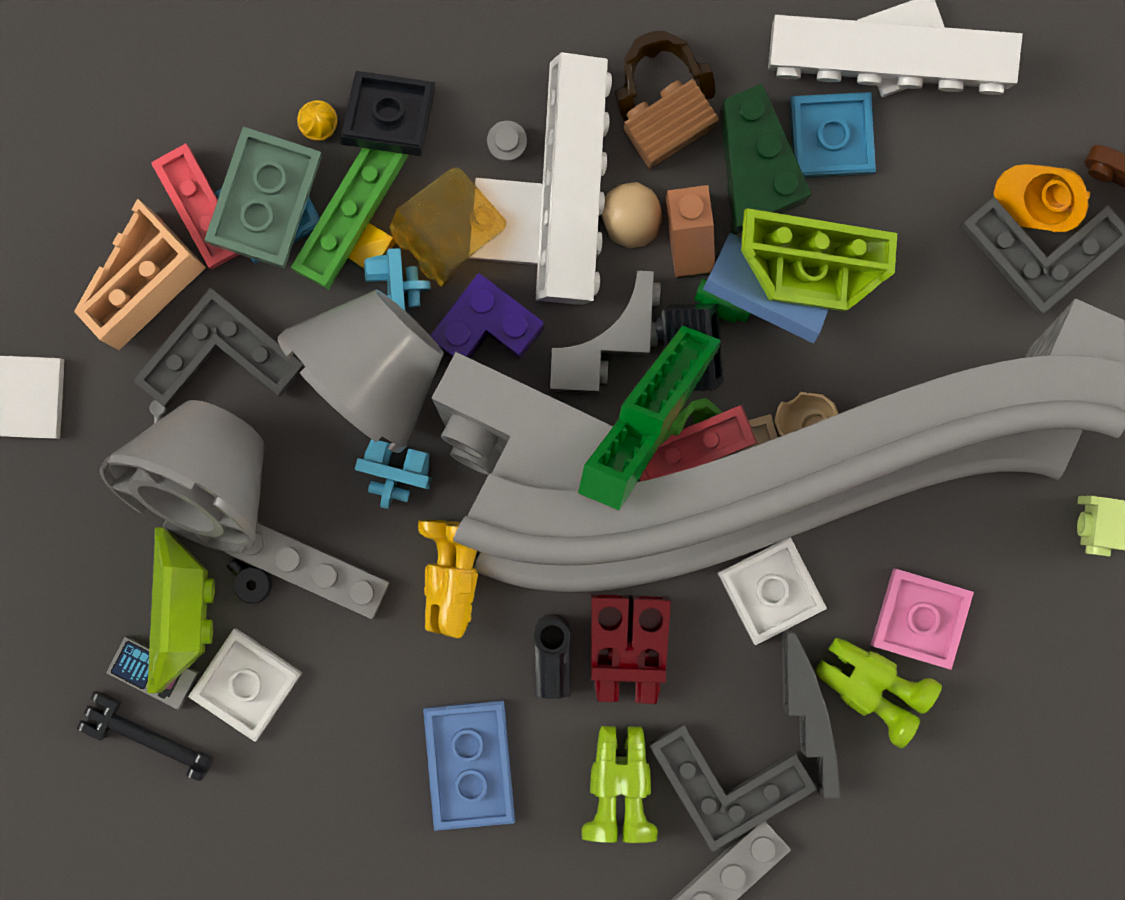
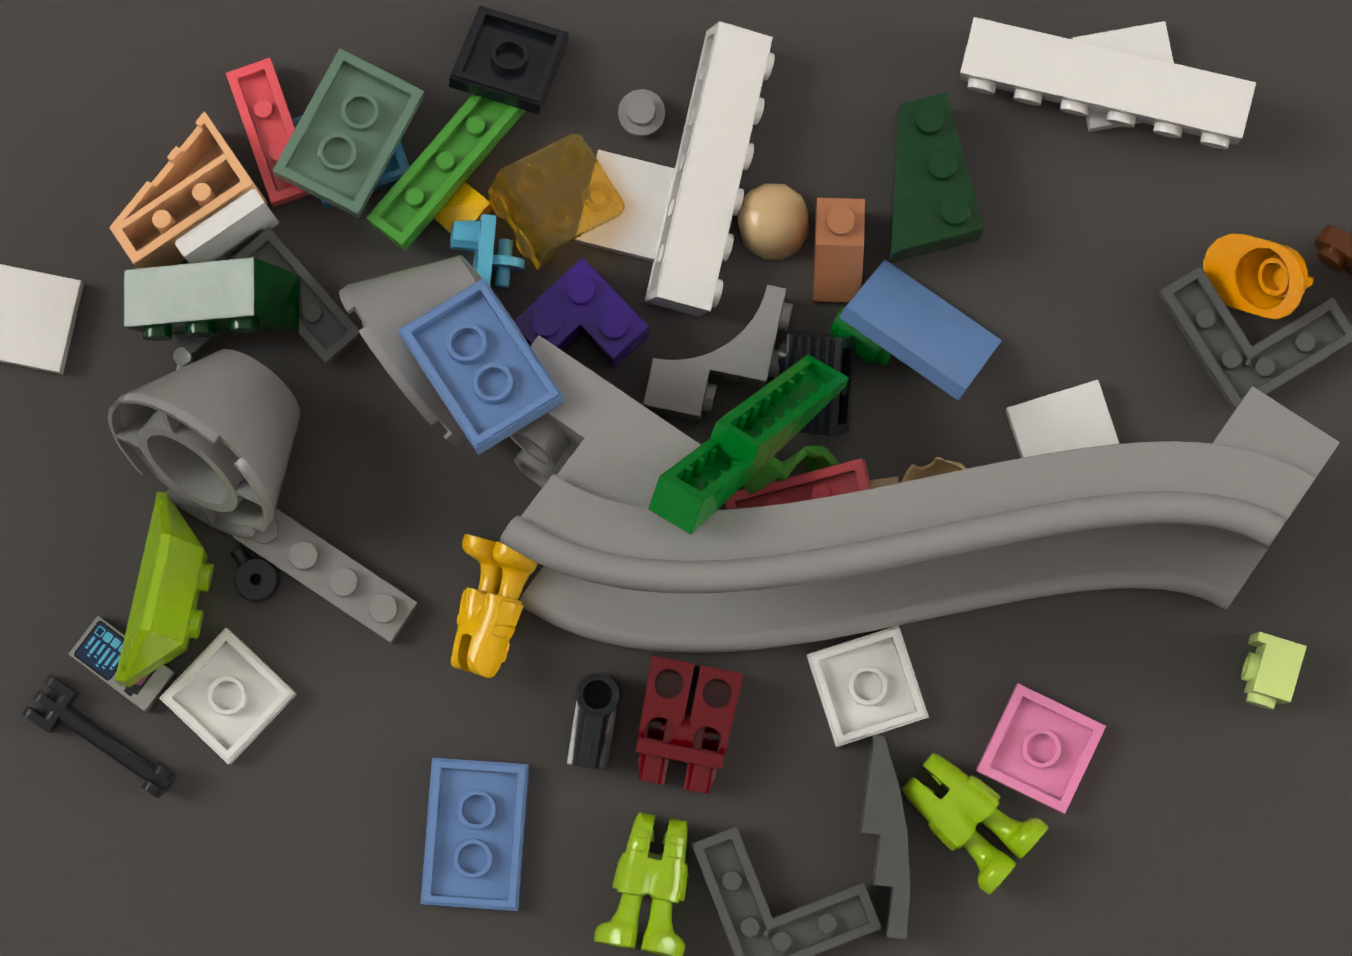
camera: 15 degrees right, 5 degrees down
(171, 358) = (211, 299): none -> wedge
(174, 299) = (227, 230): none -> white tile
(317, 120) = (425, 55): yellow plate -> none
(377, 463) = (427, 461): medium azure hips -> none
(410, 387) = (481, 366): none -> medium blue tile
(650, 45) = (828, 29): dark brown helmet -> none
(670, 122) = (834, 121): medium nougat brick -> none
(816, 259) = (976, 303): lime wedge -> none
(833, 134) = (1024, 166): dark azure tile -> none
(902, 354) = (1062, 421): none -> white tile

